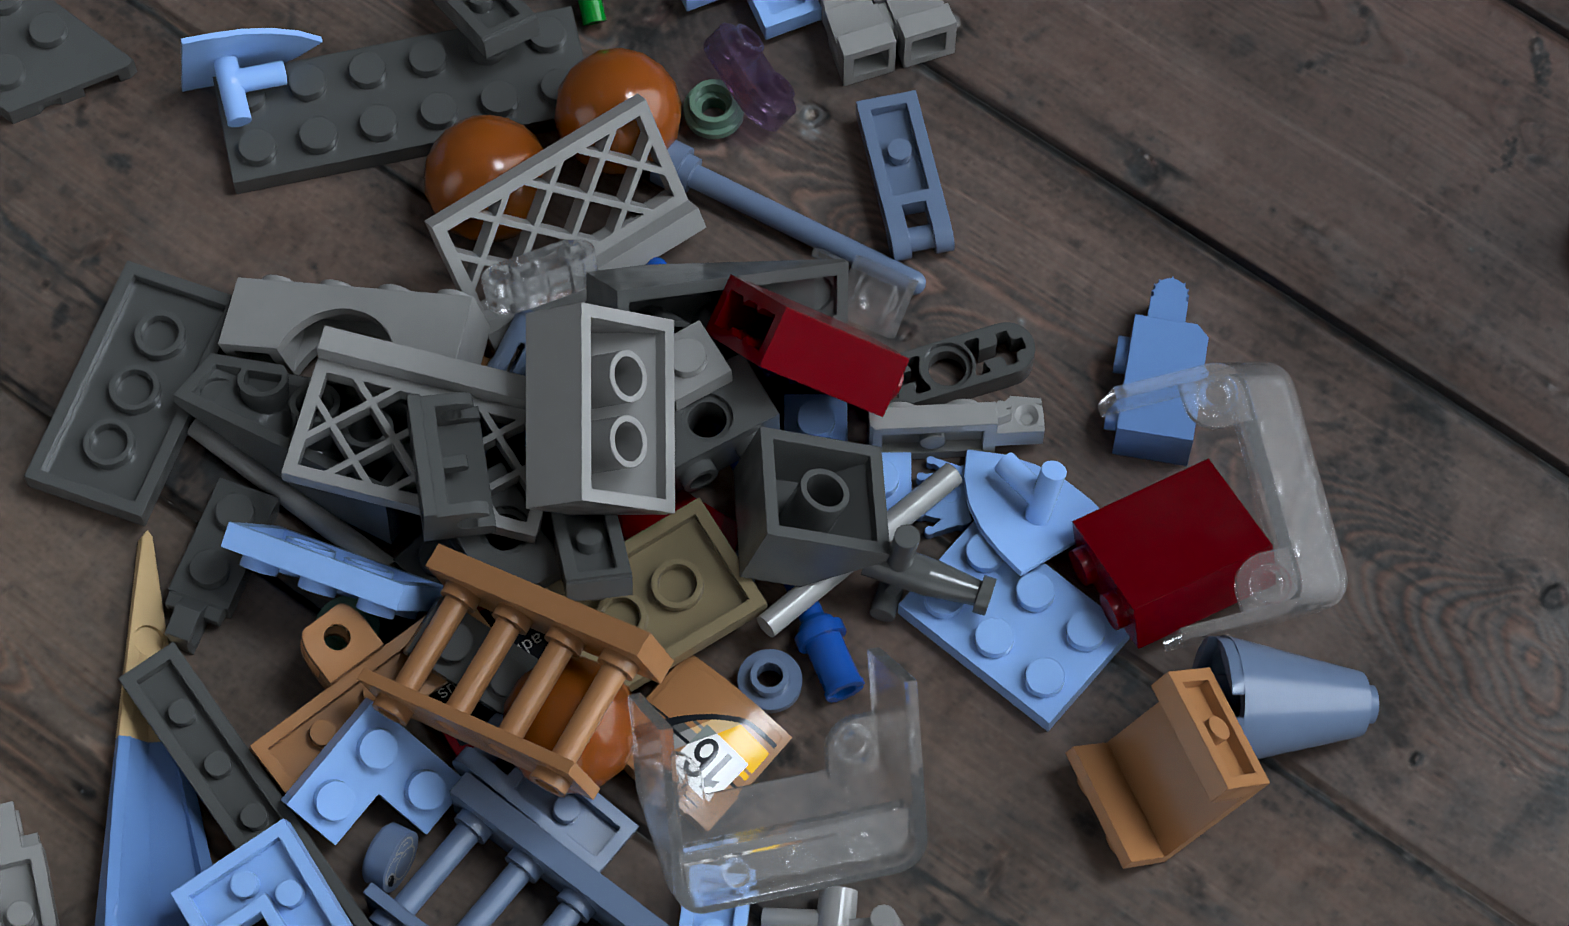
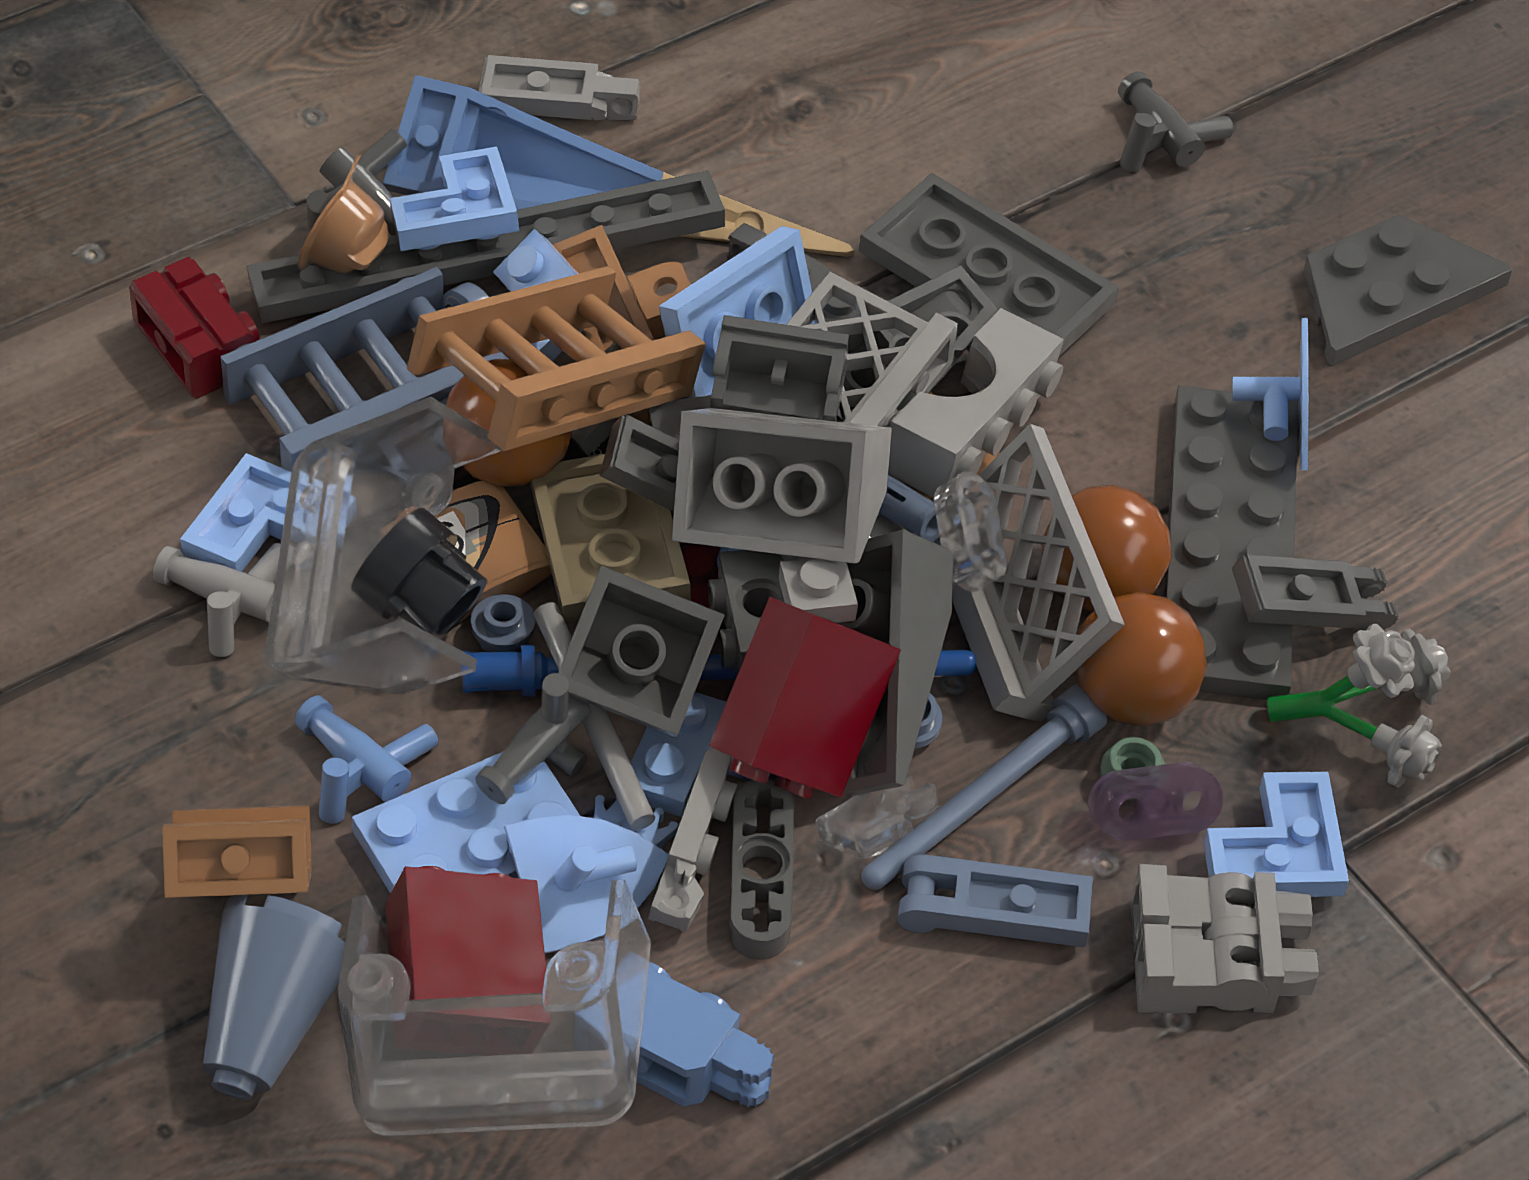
camera: 105 degrees right, 15 degrees down
(787, 741) = (419, 575): none -> black piece
(983, 730) = (359, 758): none -> medium blue piece

